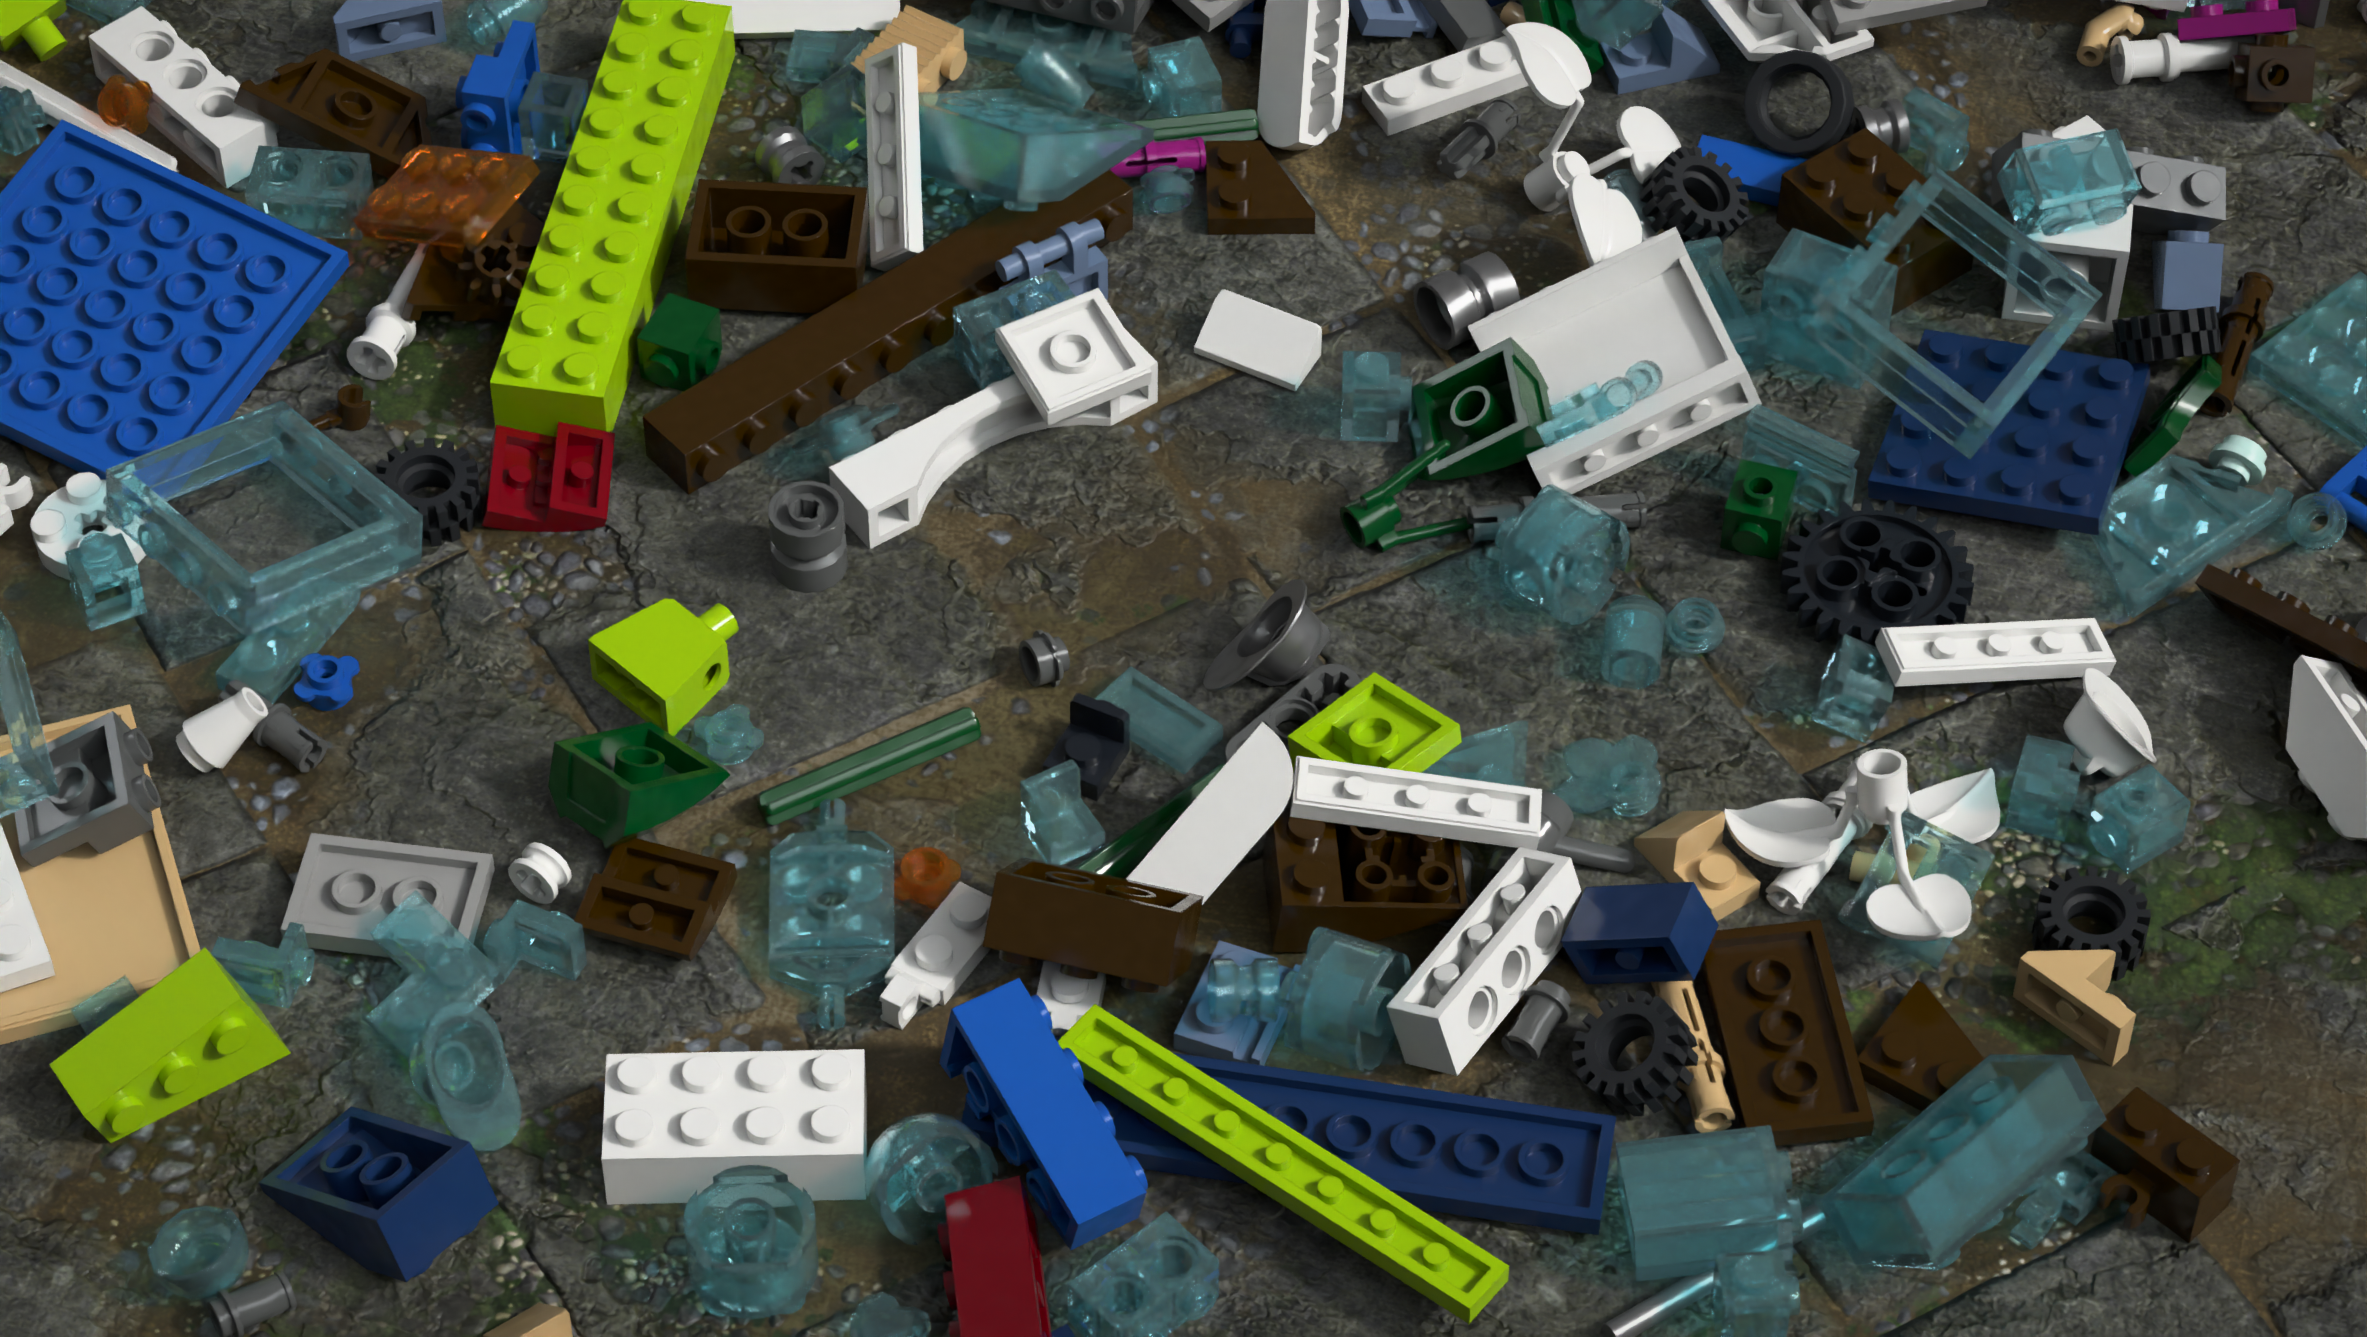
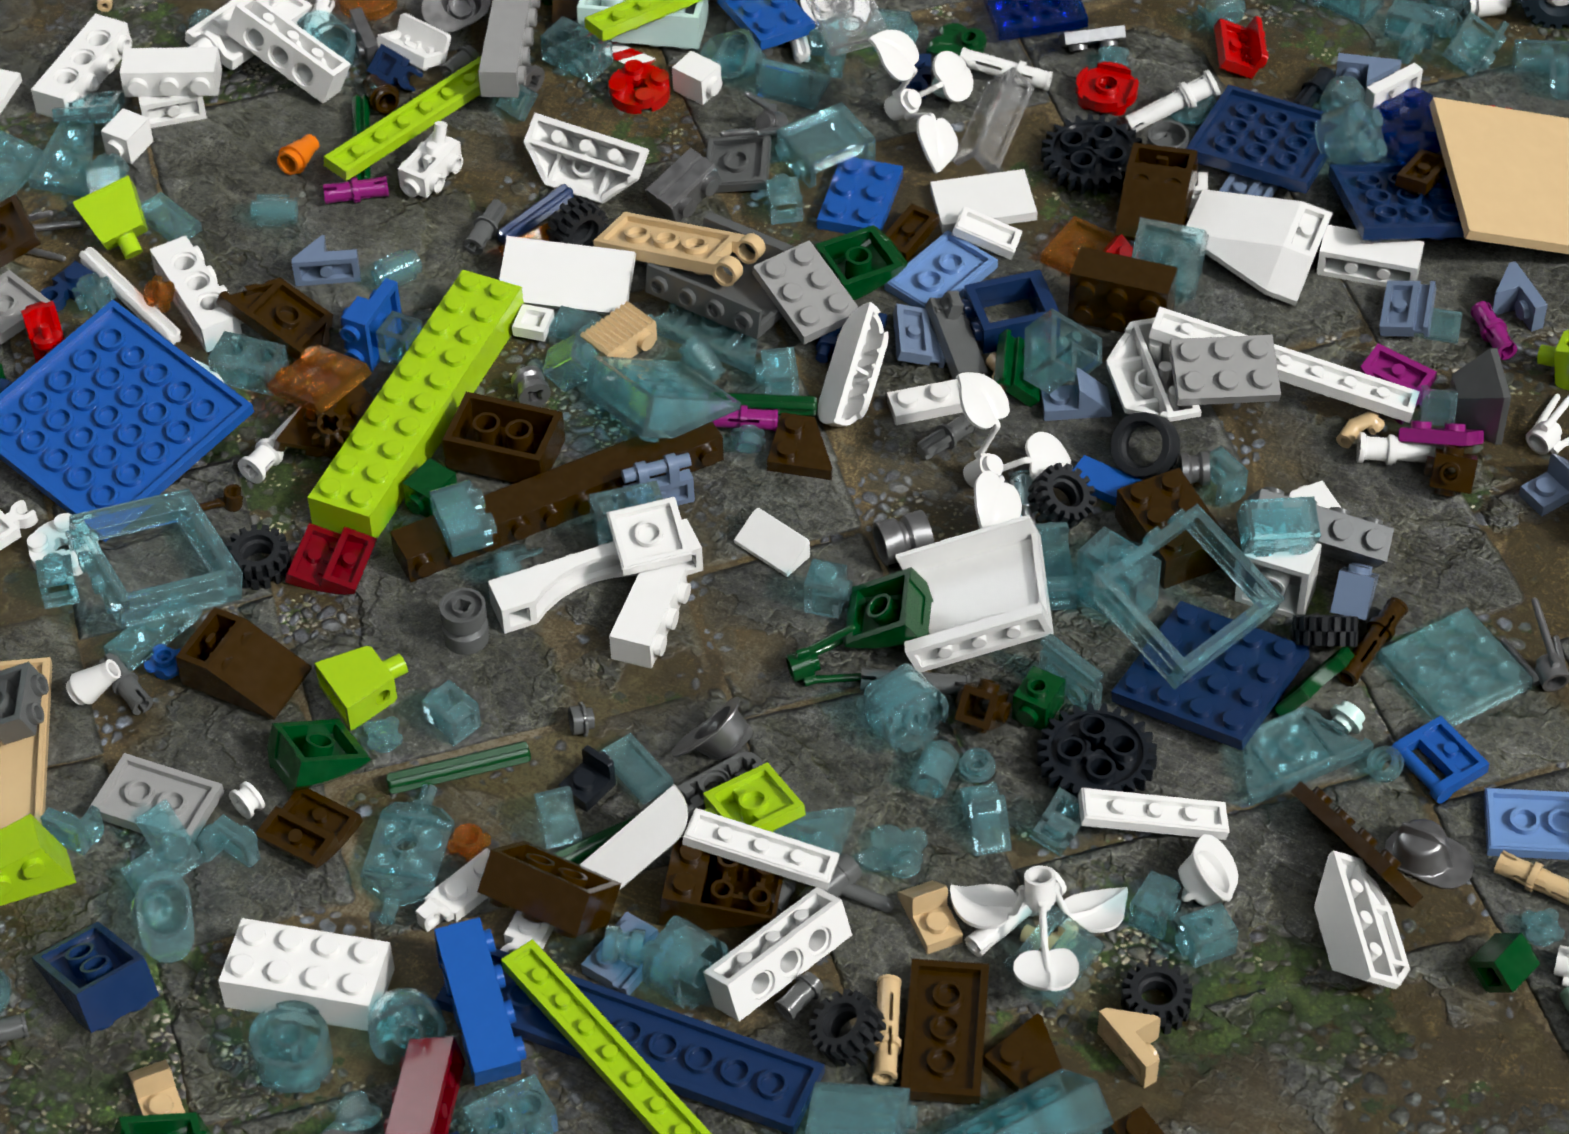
camera: 15 degrees right, 0 degrees up
(460, 663) = (240, 664): none -> dark brown slope
(758, 62) = (533, 322): none -> white plate
(760, 374) = (462, 517): none -> clear light blue brick
(833, 680) = (452, 712): none -> clear light blue brick
(893, 156) = (585, 394): white tile -> none
(1102, 481) = (649, 615): none -> white brick
(1594, 405) = (952, 617): clear light blue plate -> none
(1639, 933) = (873, 953): dark blue brick -> none
(1672, 556) = (971, 710): none -> dark brown brick
(1736, 703) = (986, 819): none -> clear light blue slope

